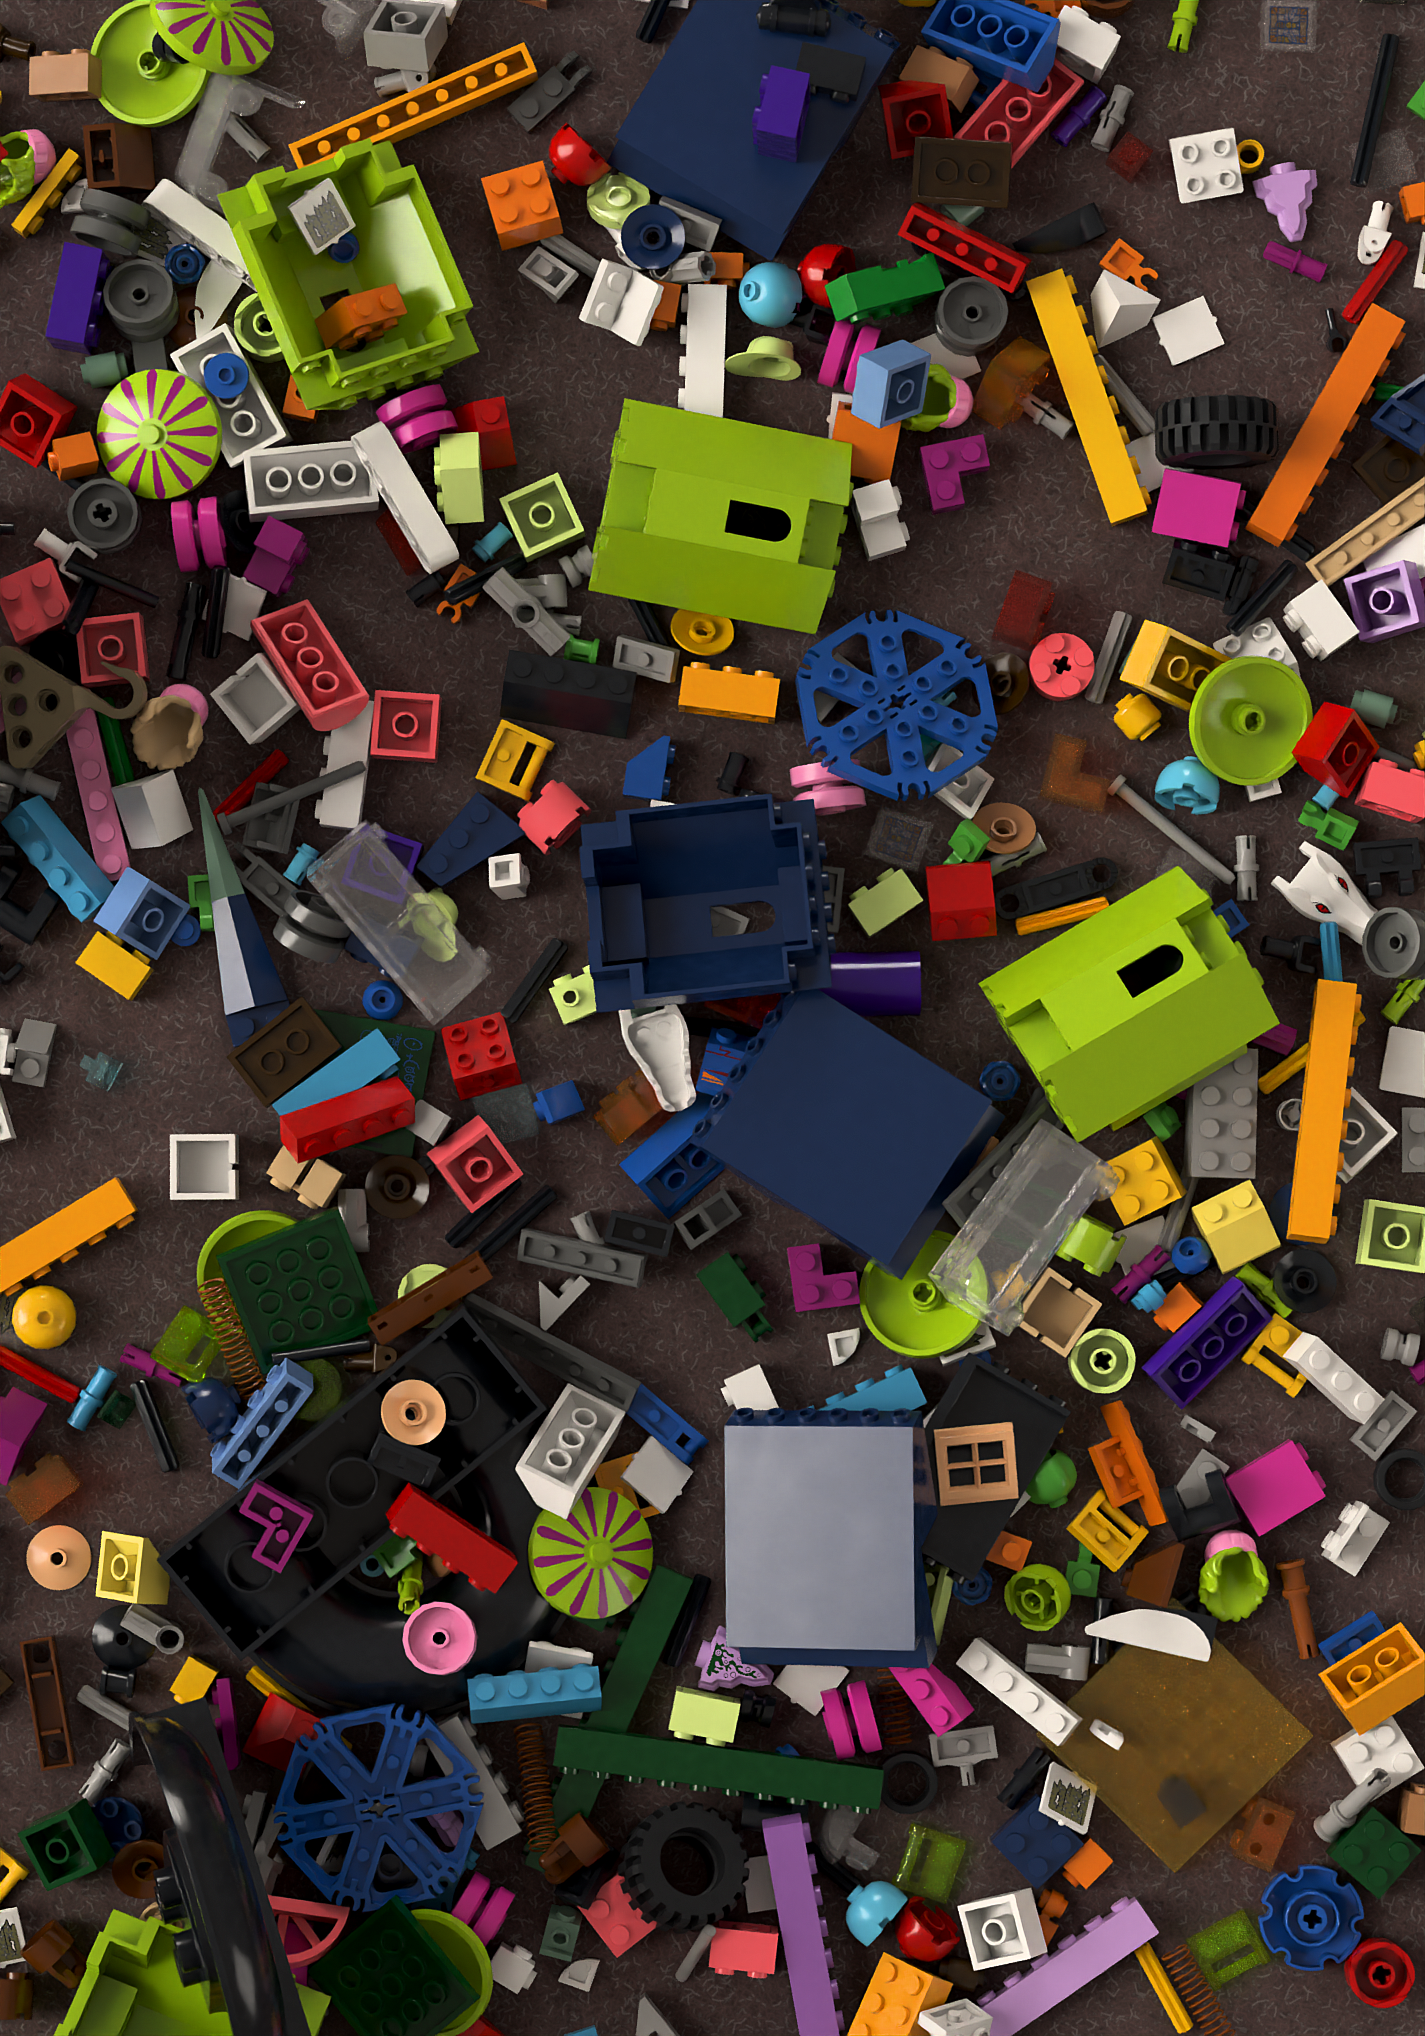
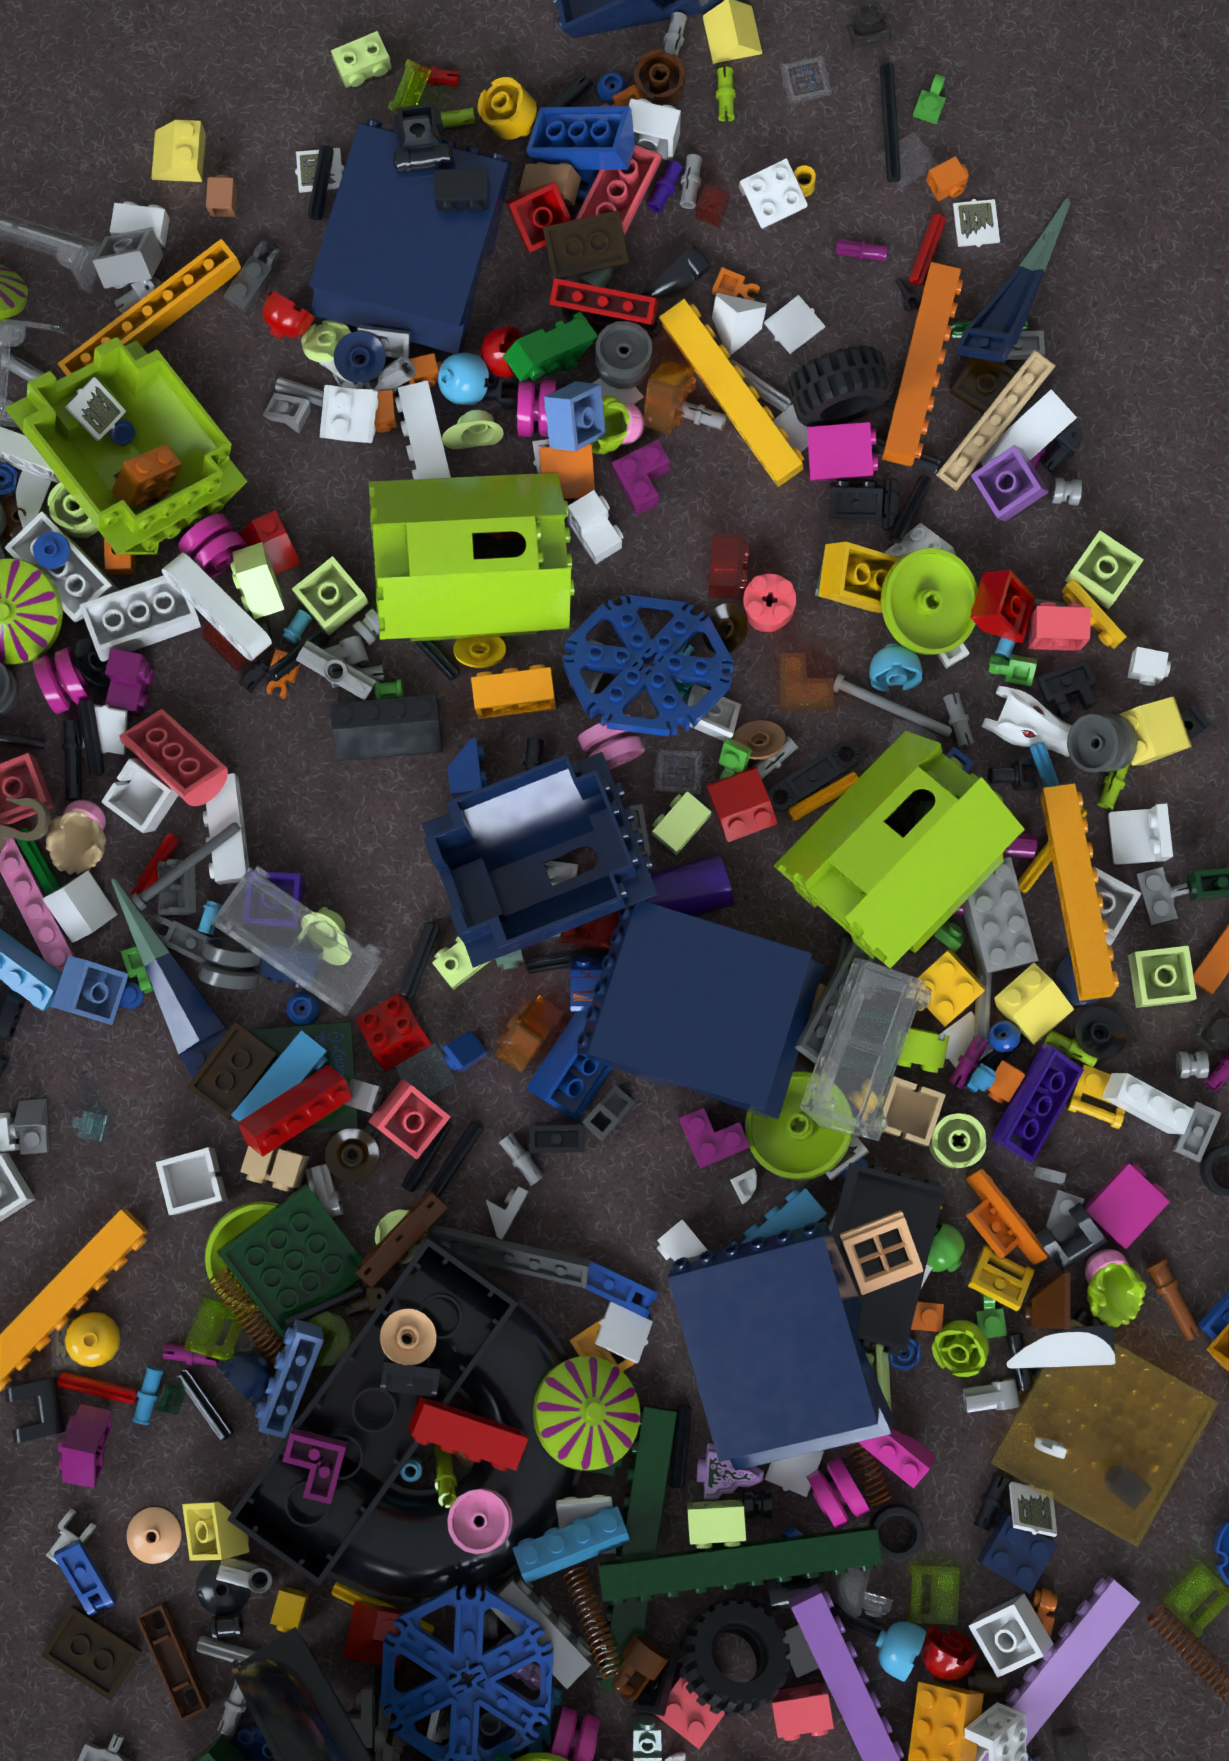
camera: 10 degrees left, 5 degrees down
(44, 1488) = (125, 1482): clear orange brick -> none
(115, 965) = (80, 1038): yellow brick -> none
(227, 1722) = (326, 1637): magenta plate -> none
(396, 1554) = (427, 1459): bright green plate -> none
(406, 726) = (264, 786): coral brick -> none
(469, 840) = (339, 863): dark blue wedge -> none
(504, 757) = (350, 788): yellow plate -> none
(508, 876) = (381, 882): white brick -> none
(522, 205) = (253, 363): orange brick -> none
(553, 816) = (399, 825): coral brick -> none
(568, 1449) = (545, 1332): white slope -> none
(581, 1257) = (515, 1171): dark grey tile -> none
(646, 658) = (441, 682): light grey plate -> none
(662, 1051) = (535, 987): white animal -> none
(695, 1953) = (763, 1726): light grey bar -> none
(735, 1293) = (647, 1167): dark green brick -> none
(781, 113) = (431, 222): dark purple brick -> none
(964, 1749) = (936, 1491): light grey plate -> none
(1001, 1070) = (820, 938): blue plate -> none
(1019, 1691) = (968, 1431): white brick -> none
(1086, 1864) = (1064, 1560): orange brick -> none
(1108, 657) = (803, 586): light grey axle -> none
(1137, 716) = (839, 625): yellow head -> none
(1163, 1988) = (1156, 1647): yellow axle -> none
(1262, 1832) = (1198, 1494): clear orange brick -> none
(1287, 196) = (842, 203): lavender rock -> none
(1291, 1109) = (1050, 898): light grey wheel -> none
(1319, 621) = (961, 512): white brick -> none
(1354, 1537) = (1200, 1229): white bracket -> none
(1374, 707) = (1024, 568): sand green brick -> none
(1375, 235) = (917, 214): white piece -> none

